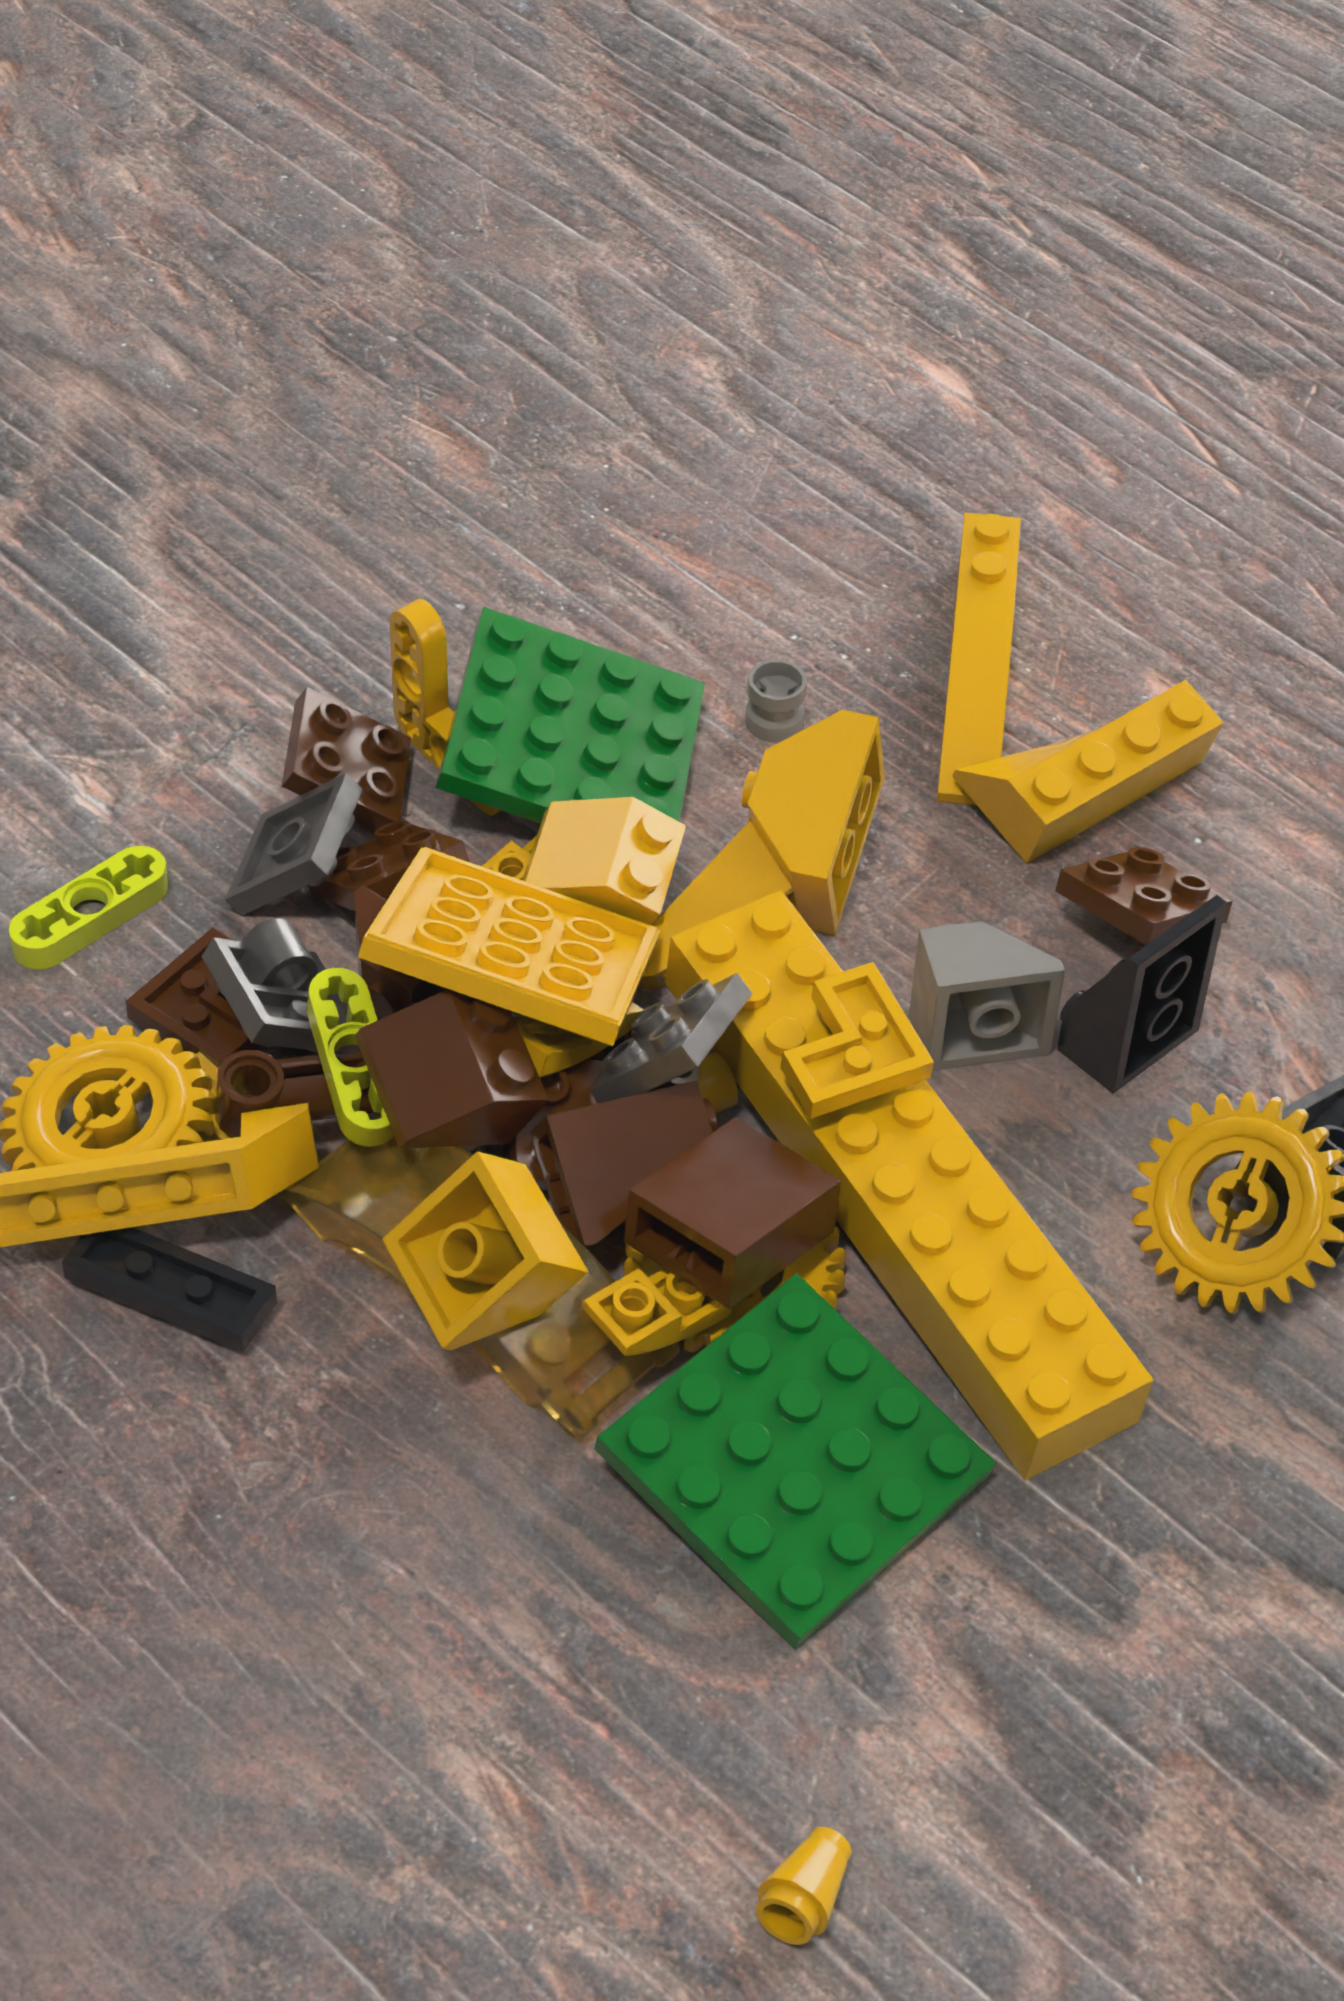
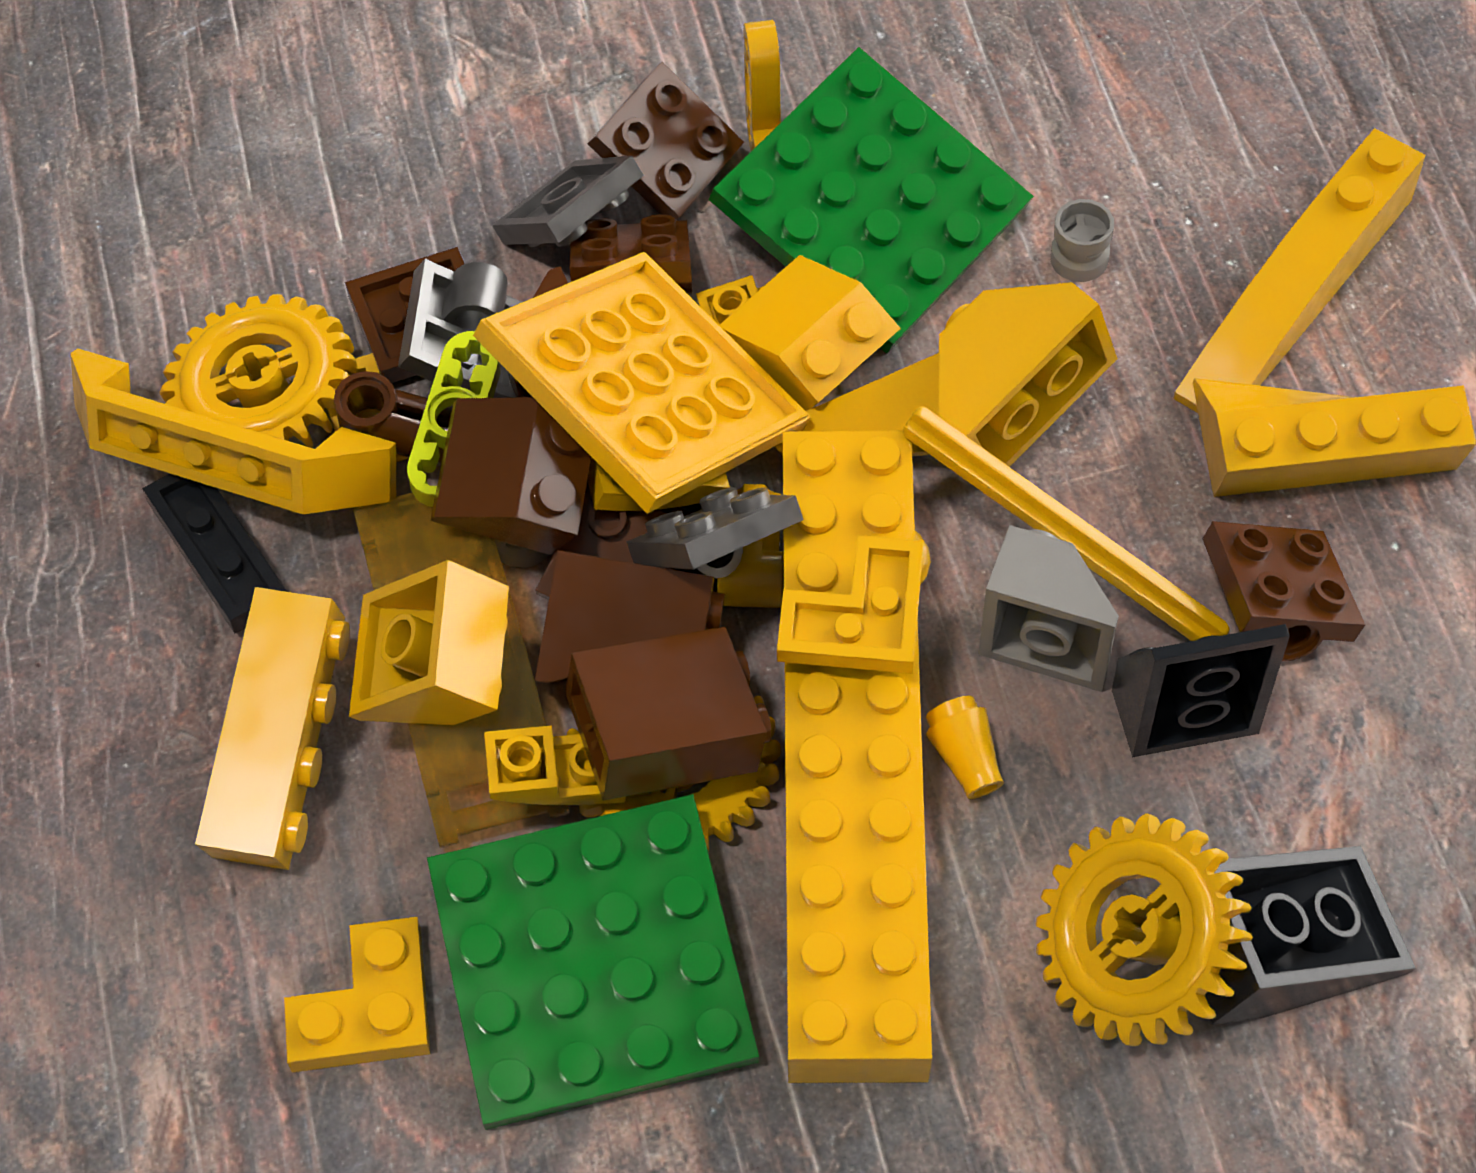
camera: 35 degrees right, 10 degrees up
(44, 942) = (369, 203): neon yellow beam -> none
(366, 1400) = (273, 729): none -> yellow wedge
(628, 1601) = (378, 1017): none -> yellow plate
(915, 913) = (1047, 514): none -> yellow axle
(990, 1138) = (965, 743): none -> yellow cone

